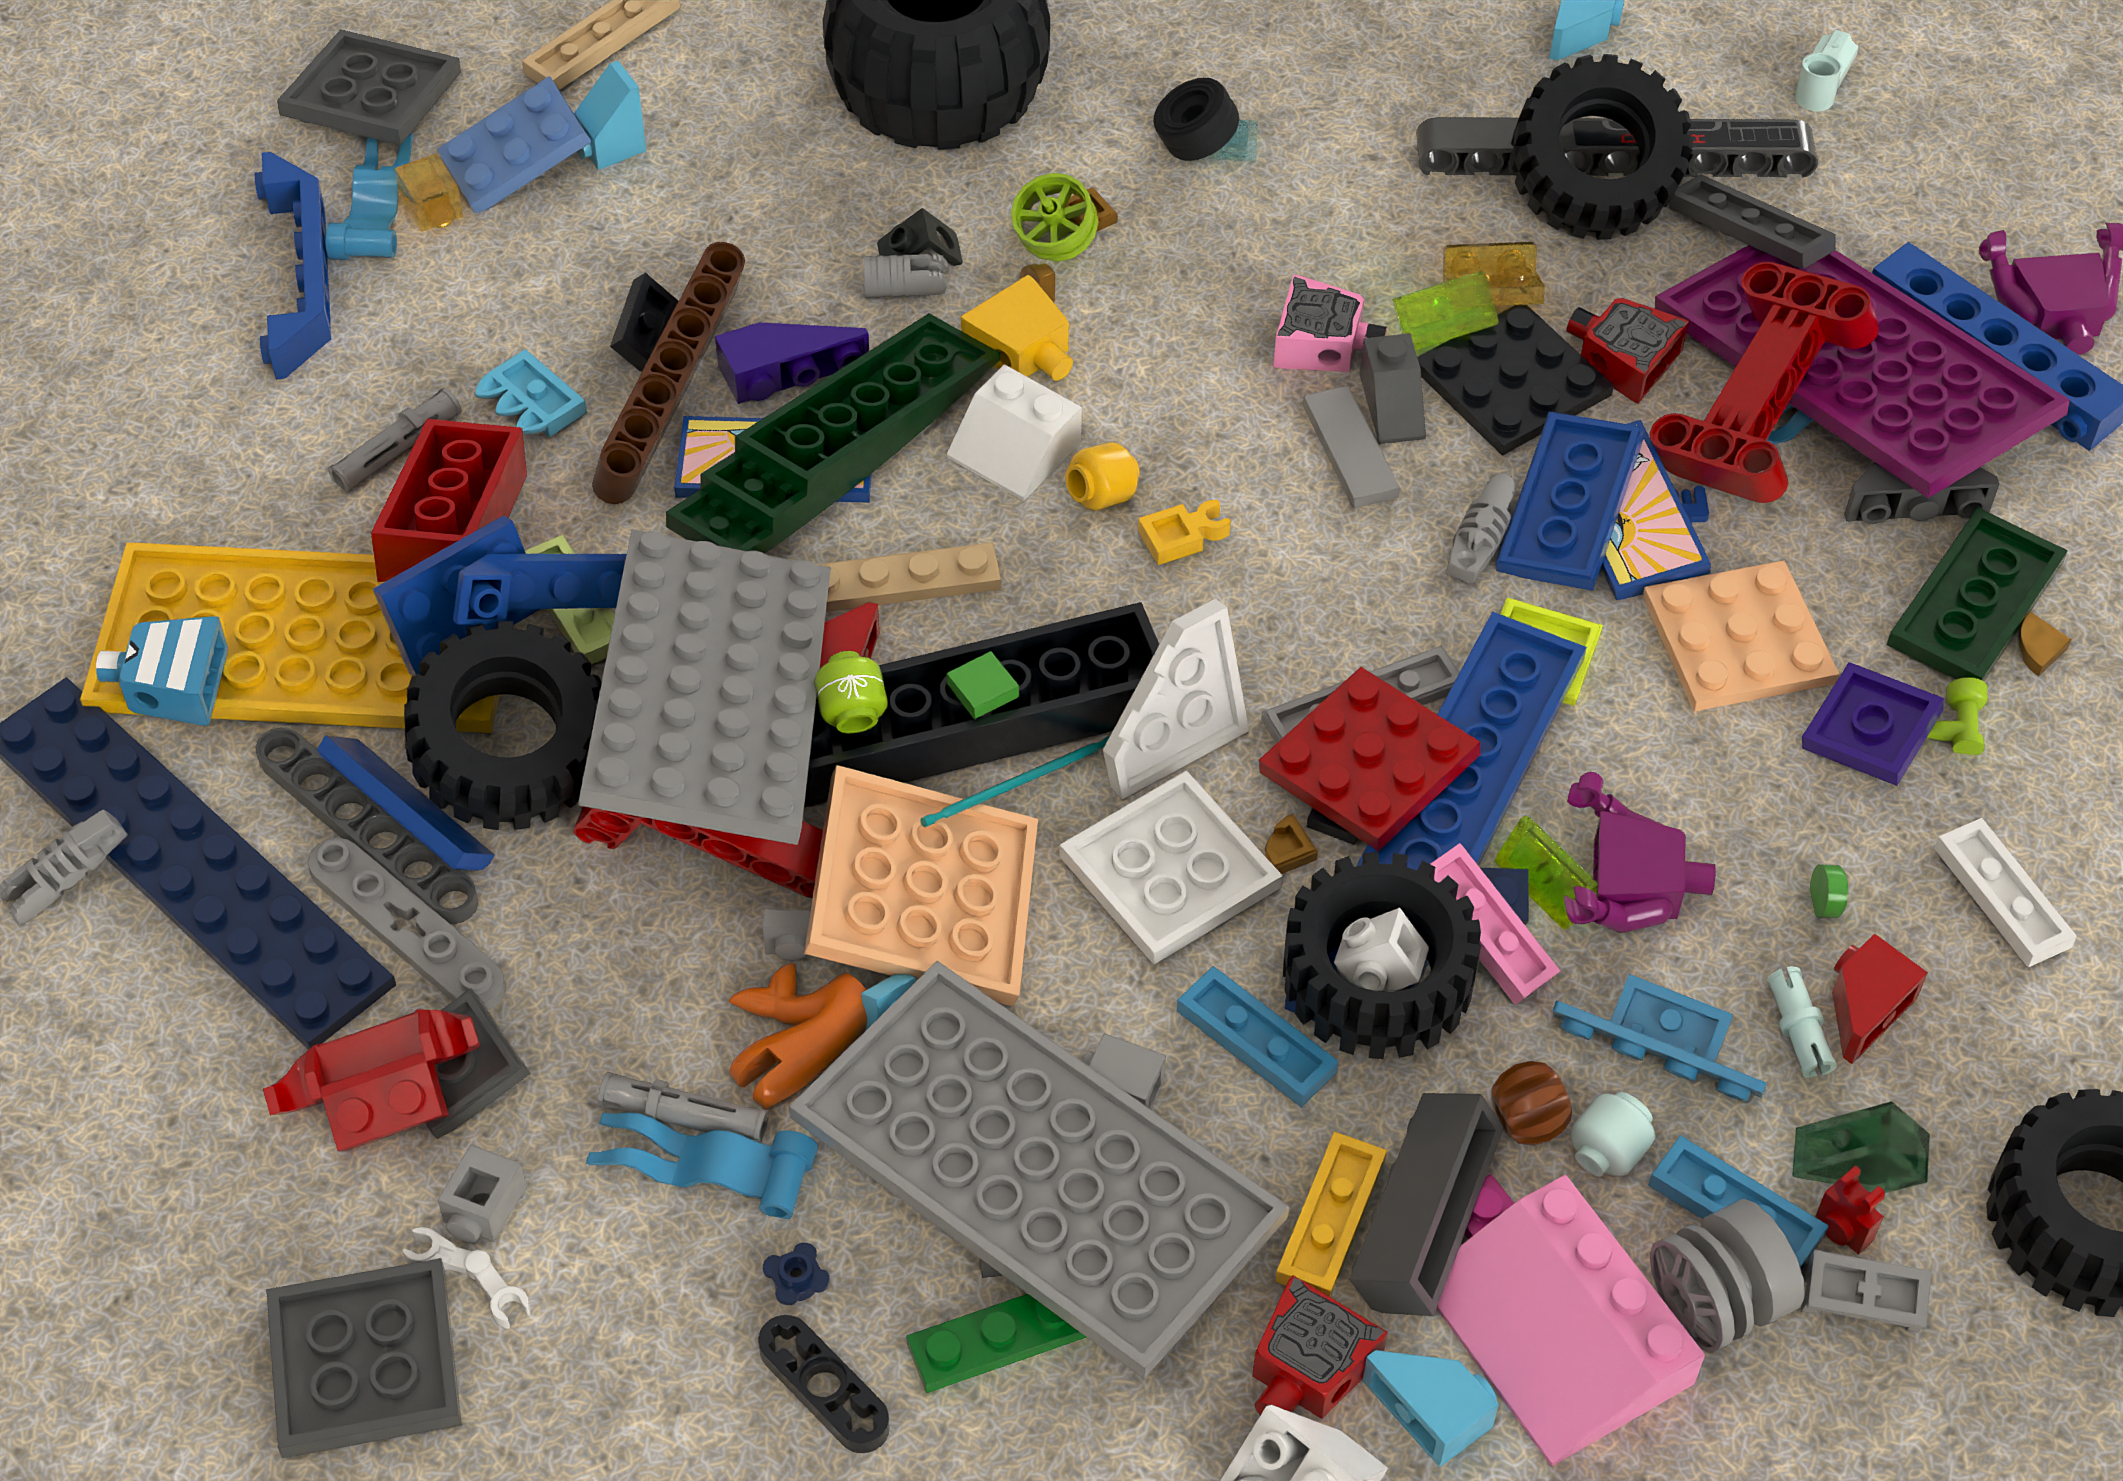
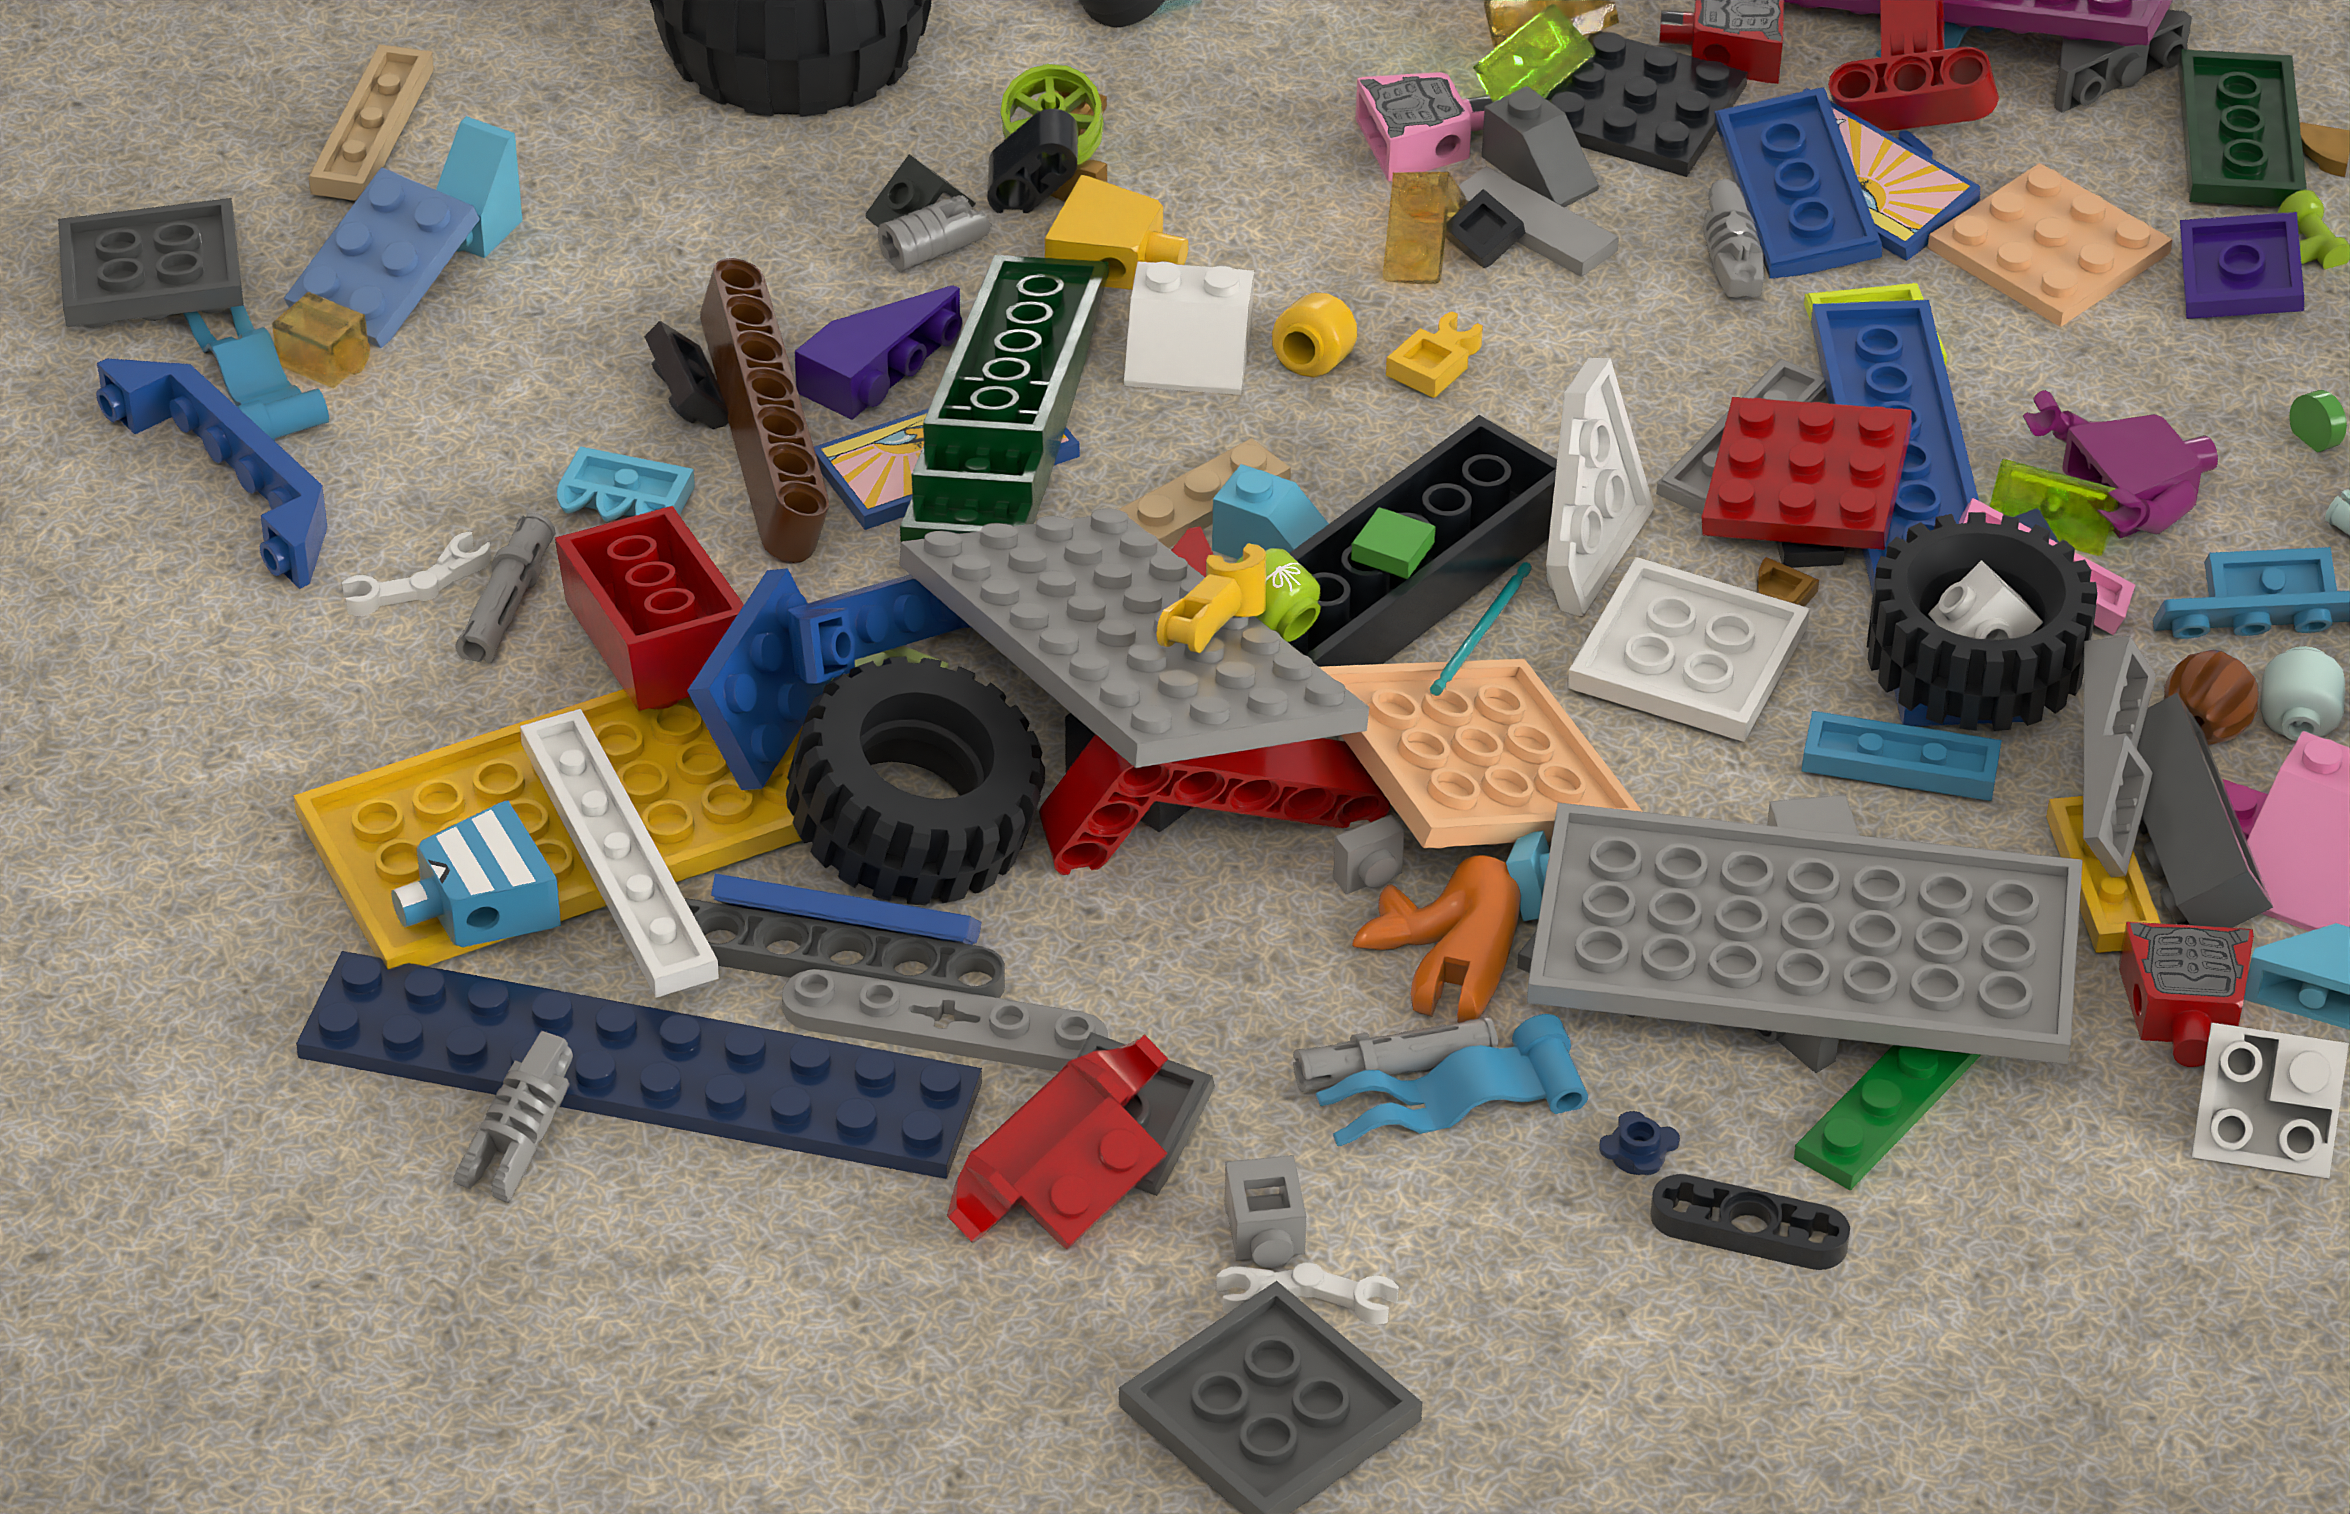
camera: 30 degrees left, 10 degrees down
(276, 690) = (619, 853): none -> white plate
(351, 412) = (423, 585): none -> white piece
(762, 687) = (1223, 593): none -> yellow piece
(937, 612) = (1262, 512): none -> medium azure slope
(1008, 248) = (1033, 161): none -> black beam
(1249, 413) = (1418, 225): none -> clear yellow bracket
(1300, 439) = (1484, 229): none -> black plate
(1378, 1137) = (2115, 774): none -> light grey slope

